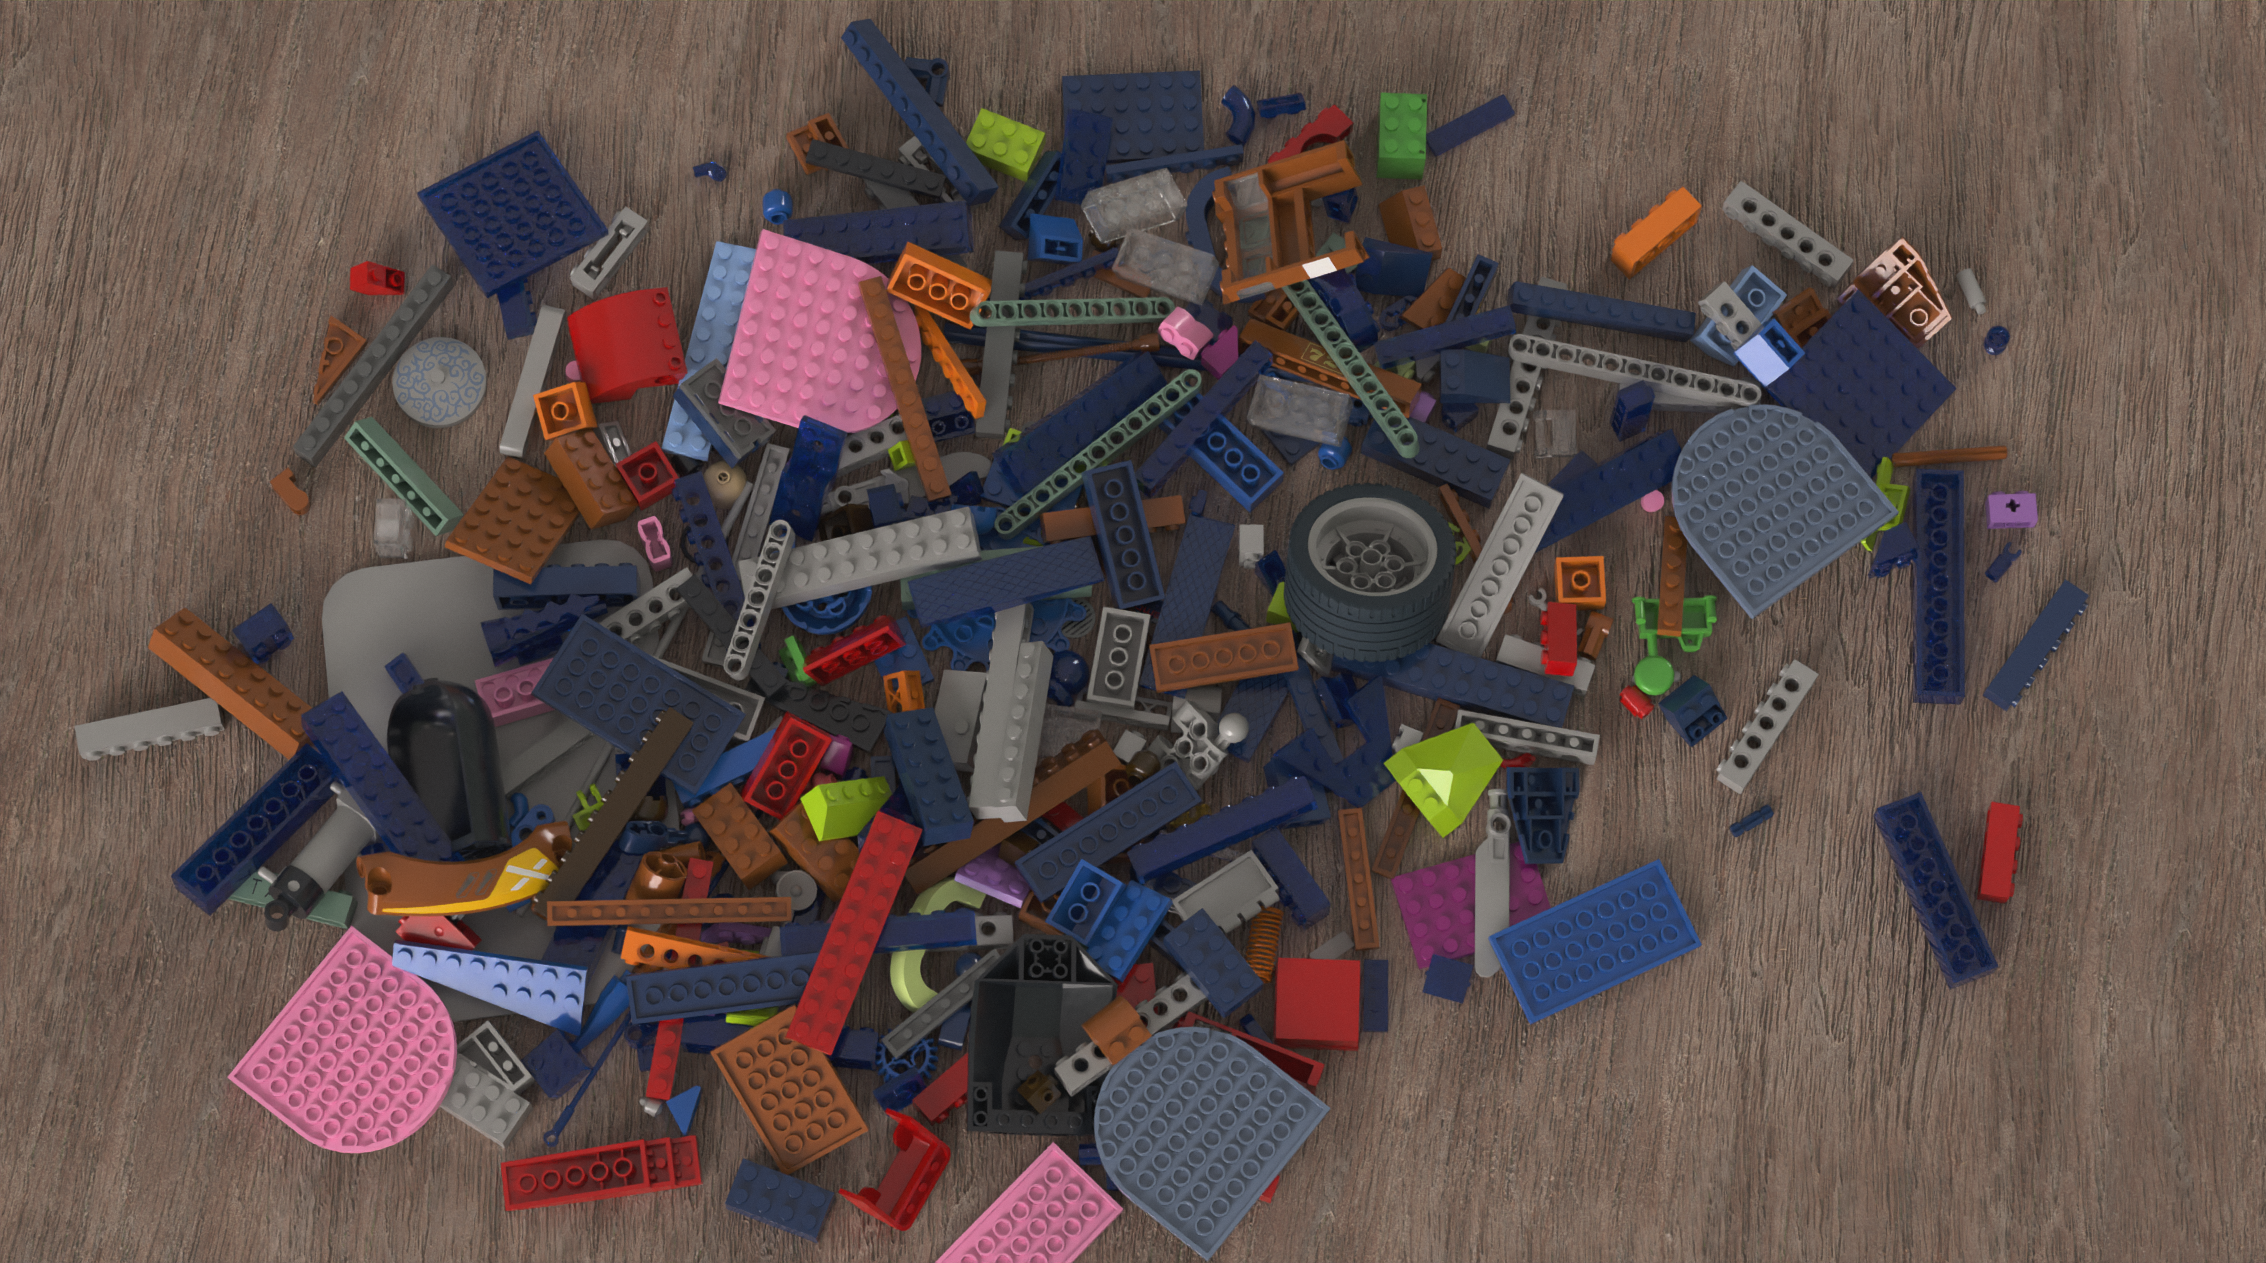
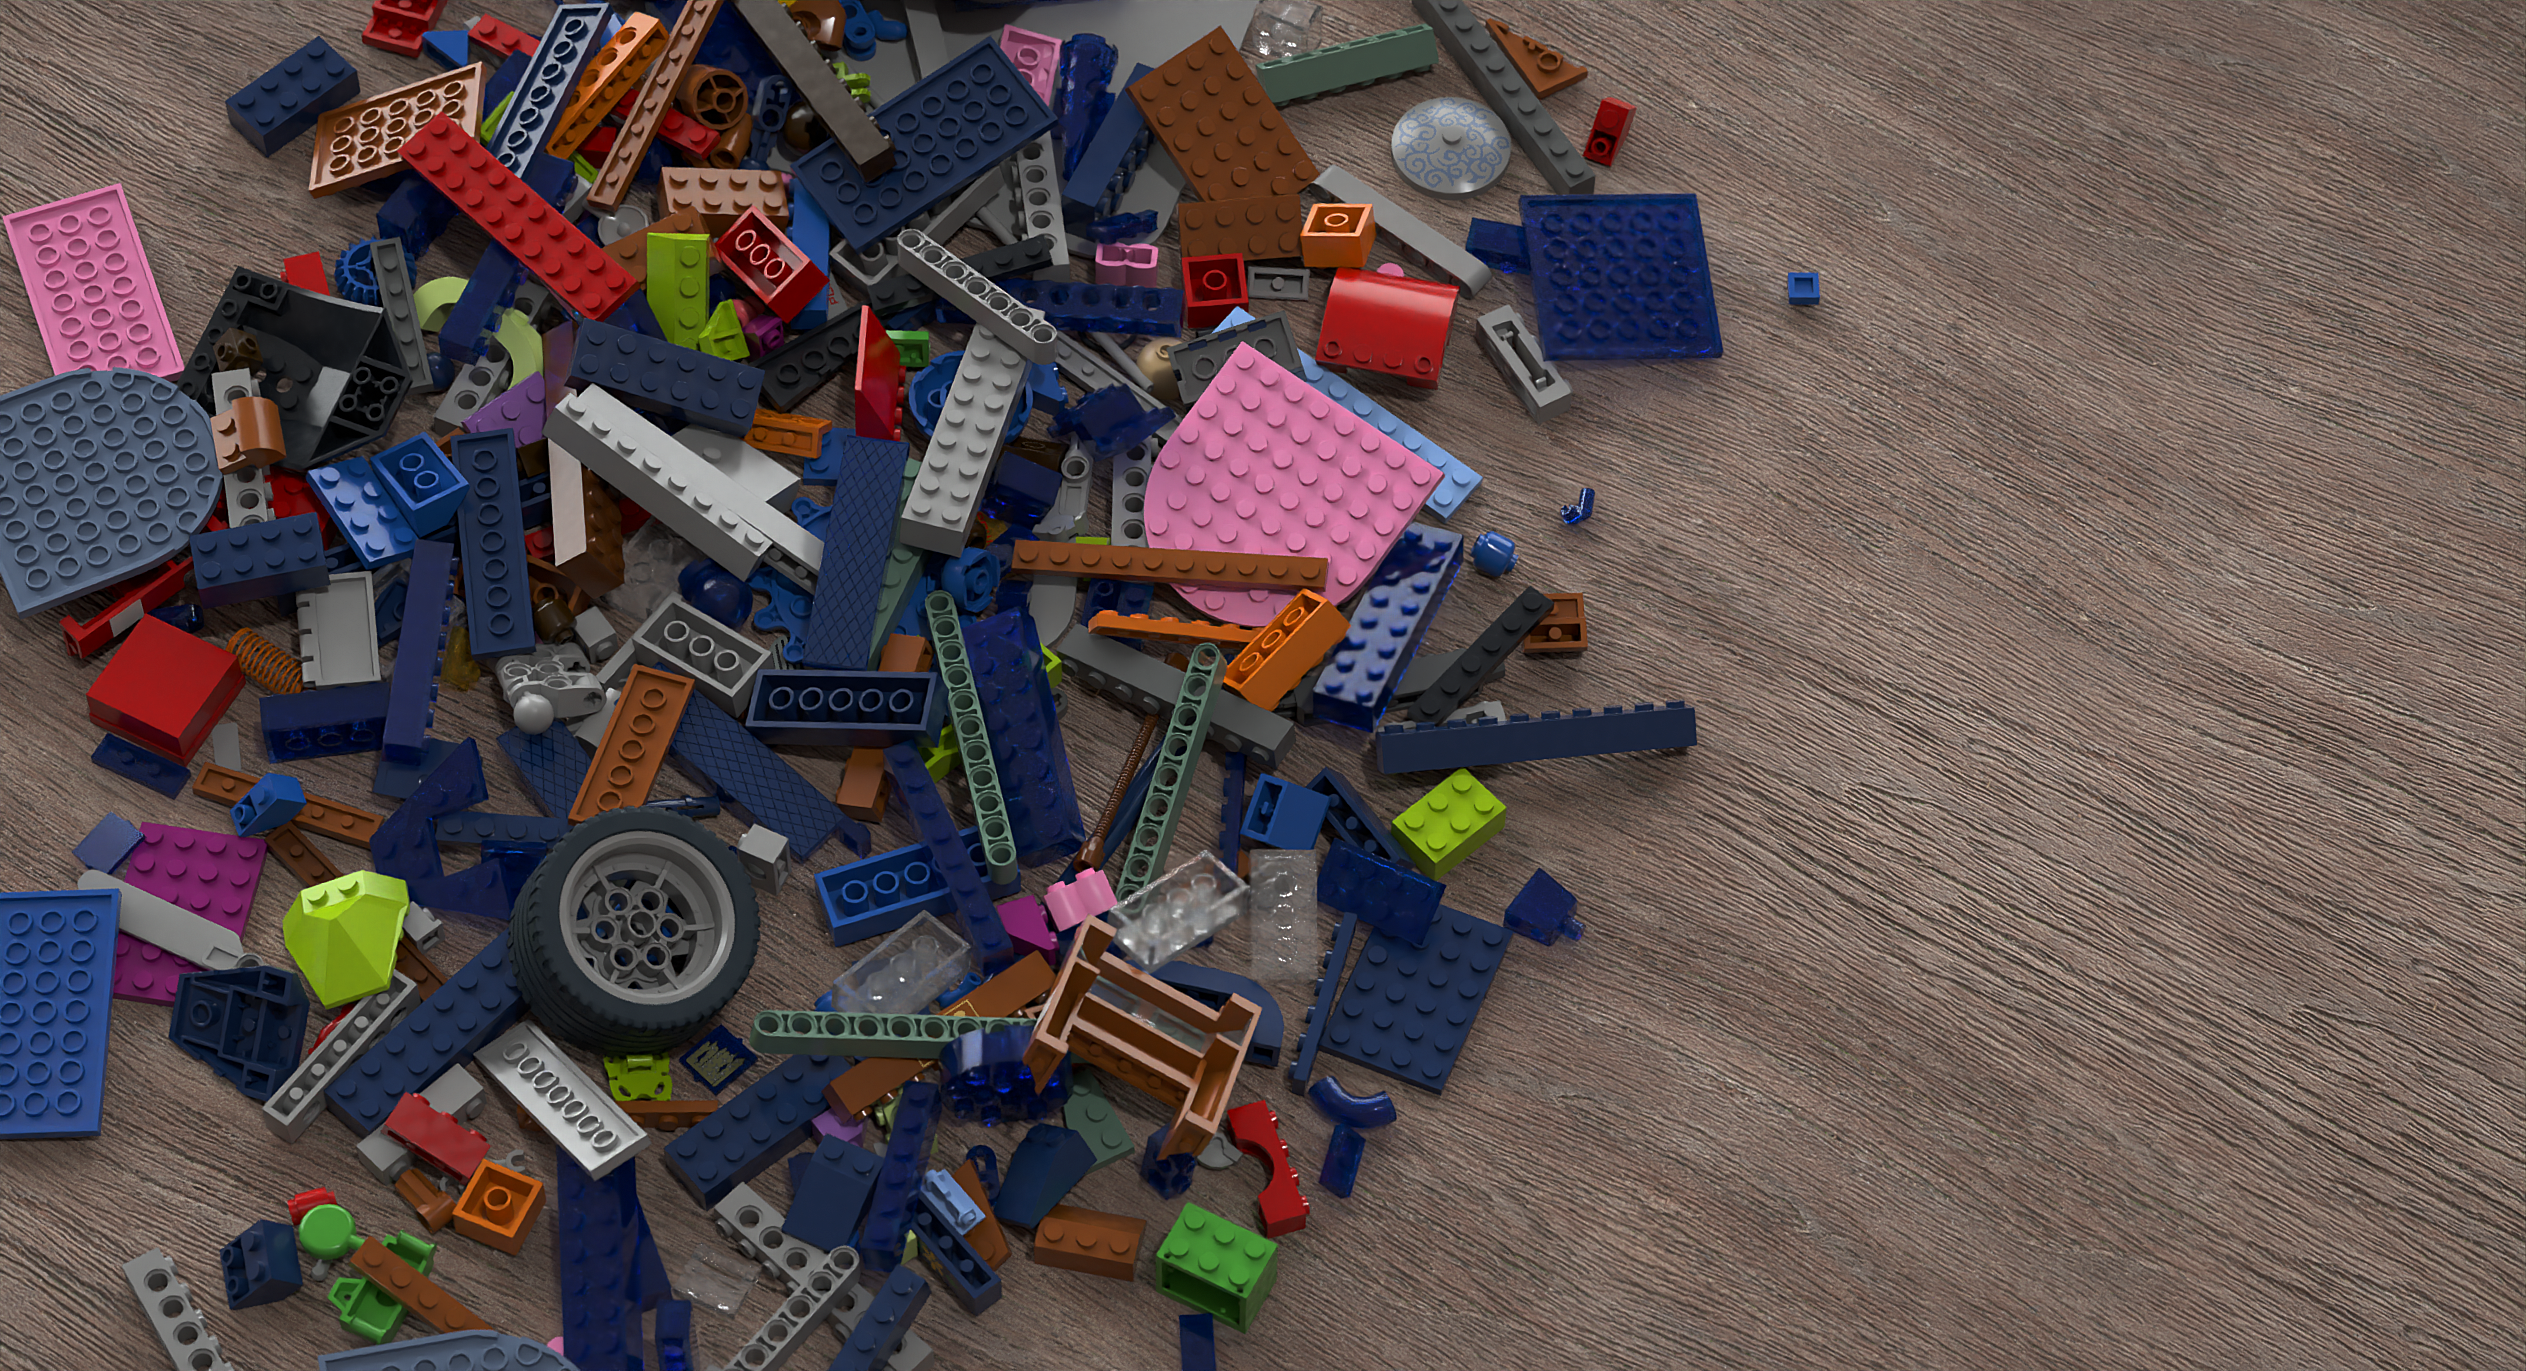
camera: 115 degrees right, 15 degrees down
(456, 102) = (1803, 288): none -> blue plate
(630, 552) = (1122, 226): none -> clear blue hinge
(862, 768) = (724, 334): none -> lime wing
(900, 1090) = (333, 240): clear blue plate -> none
(909, 1177) = (229, 216): red windscreen -> none
(924, 70) = (1585, 790): dark blue piece -> none
(1038, 62) = (1544, 911): none -> clear blue torso
(1374, 881) = (268, 804): none -> blue slope
(1438, 307) = (952, 1201): none -> light blue hinge
(1751, 820) = (83, 1271): dark blue axle -> none

